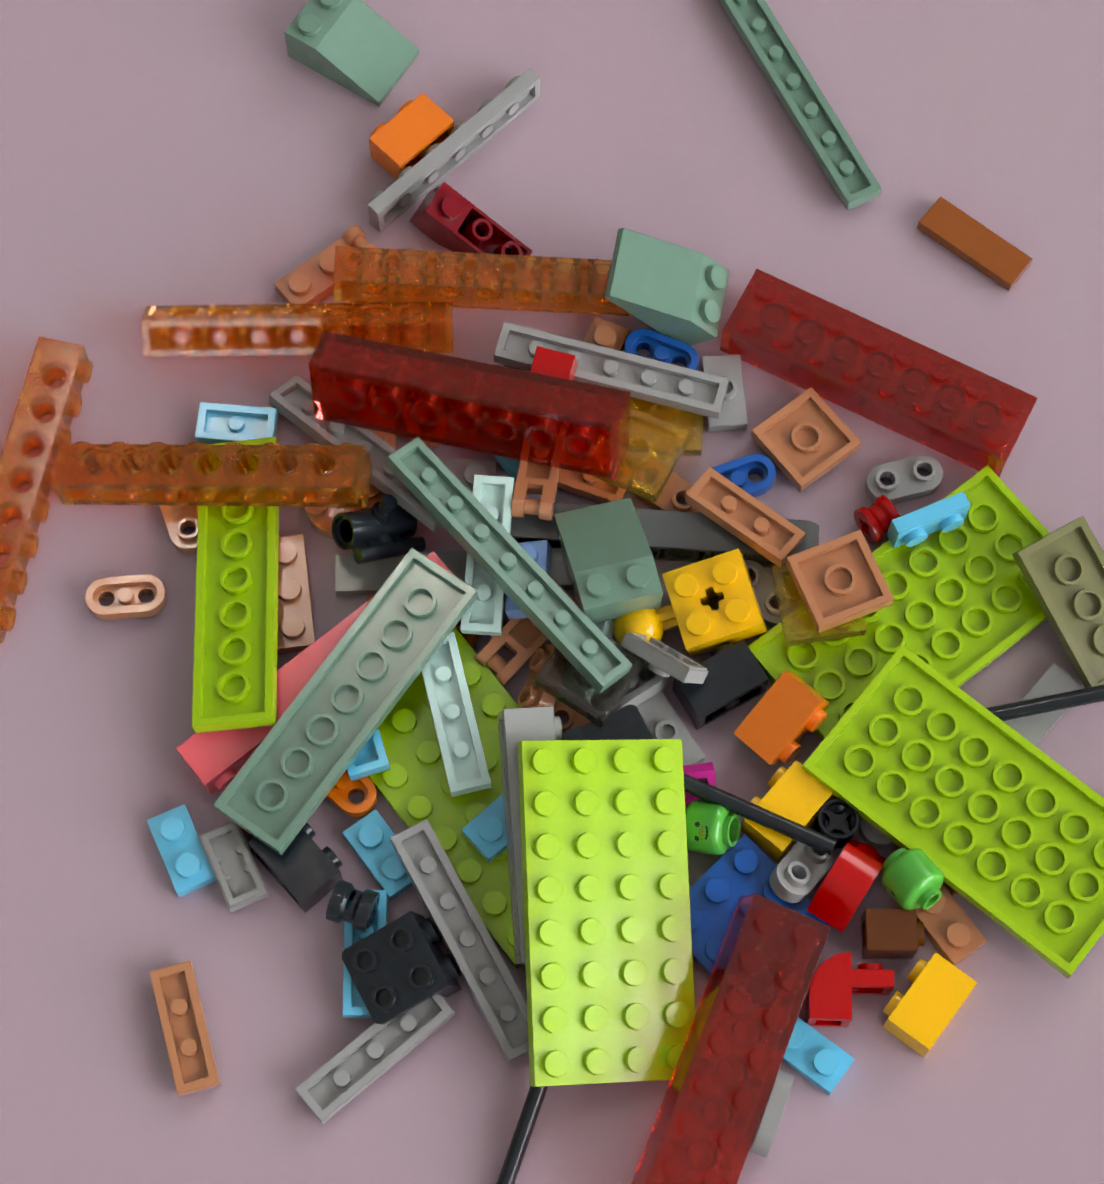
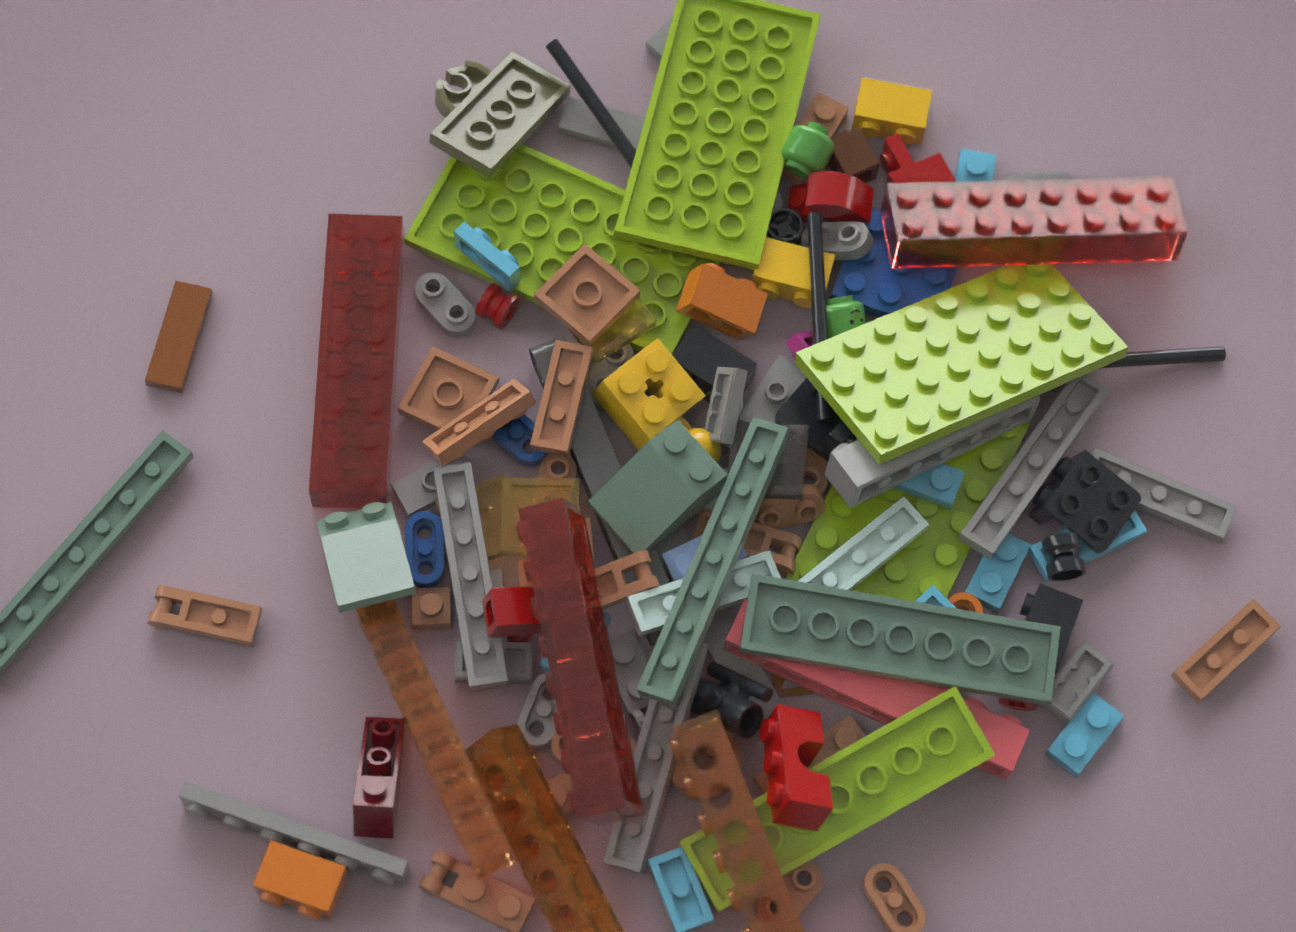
camera: 120 degrees left, 0 degrees up
(248, 526) = (790, 745): none -> red arch
(687, 160) = (206, 615): none -> nougat plate
(757, 440) = (479, 422): none -> nougat plate

